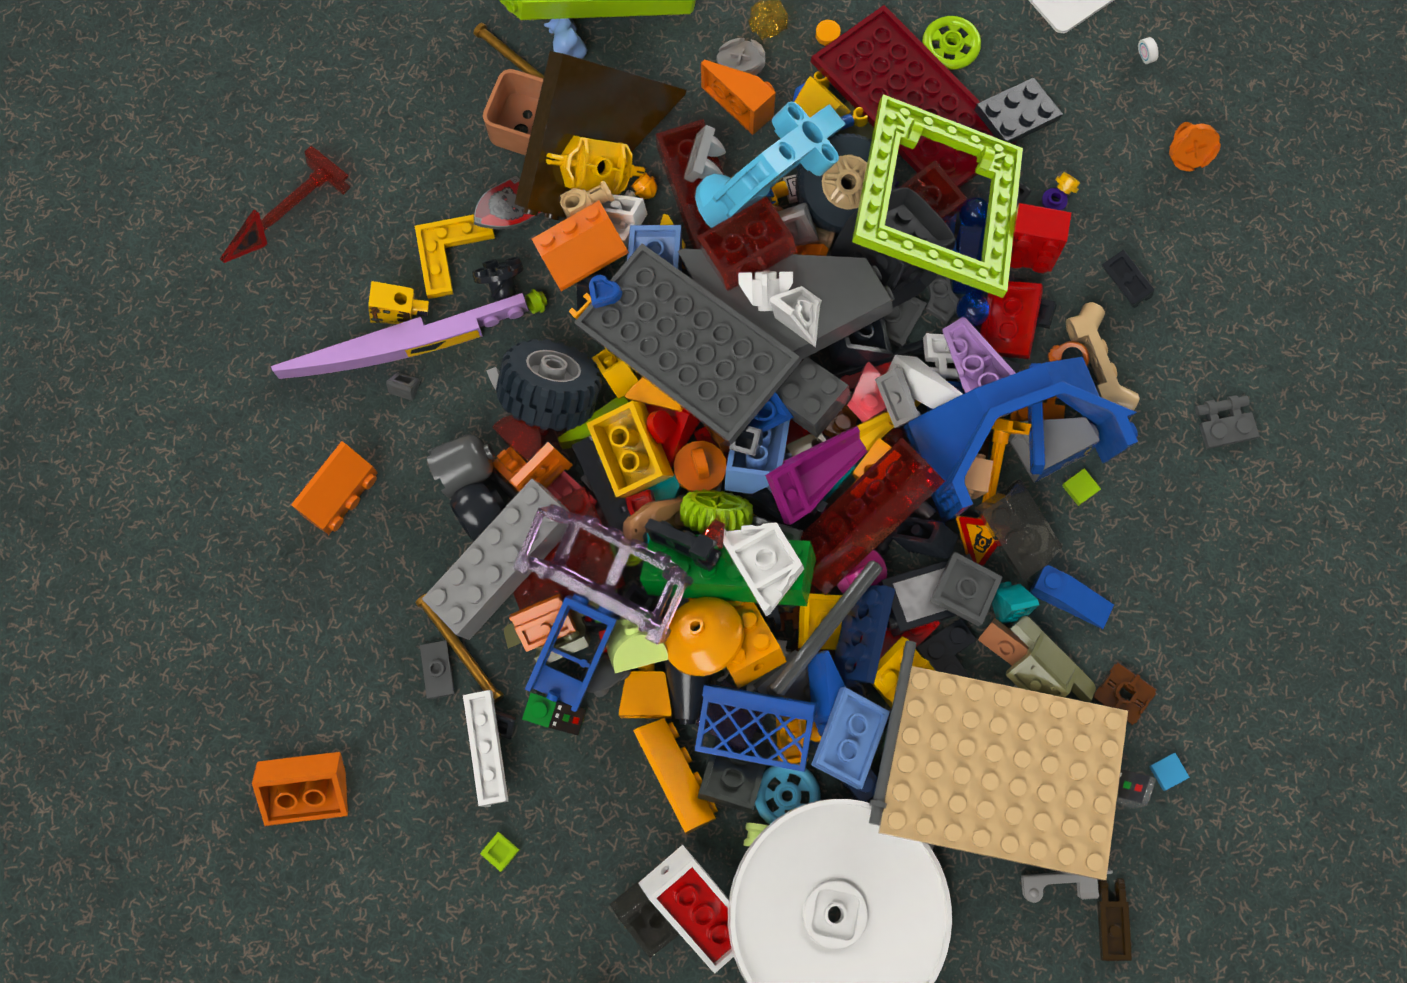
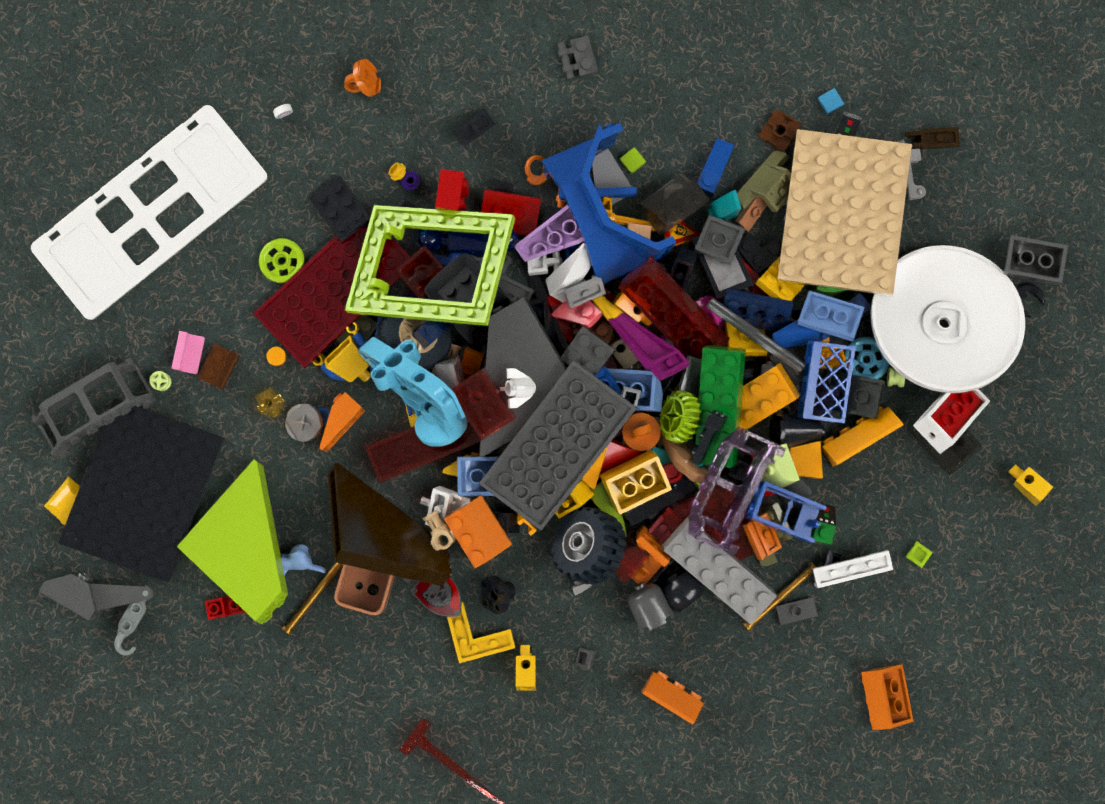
camera: 90 degrees left, 10 degrees up
(402, 340) = (551, 660): lavender slope -> none
(536, 301) = (514, 564): lime plate -> none
(581, 160) = (409, 535): yellow plate -> none
(604, 291) = (518, 509): blue tile -> none
(645, 186) = (416, 489): light orange plate -> none
(660, 425) = (619, 460): red tile -> none
(704, 146) = (392, 444): light grey tile -> none
(712, 645) = (773, 409): light orange dish -> none
(716, 532) = (701, 414): clear red piece -> none
(764, 562) = (721, 379): white wing -> none
(798, 311) = (534, 362): white slope -> none
(847, 191) = (430, 332): none -> dark blue slope
(878, 802) = (825, 287): dark grey bar -> none
(1084, 330) = (514, 159): tan plate -> none

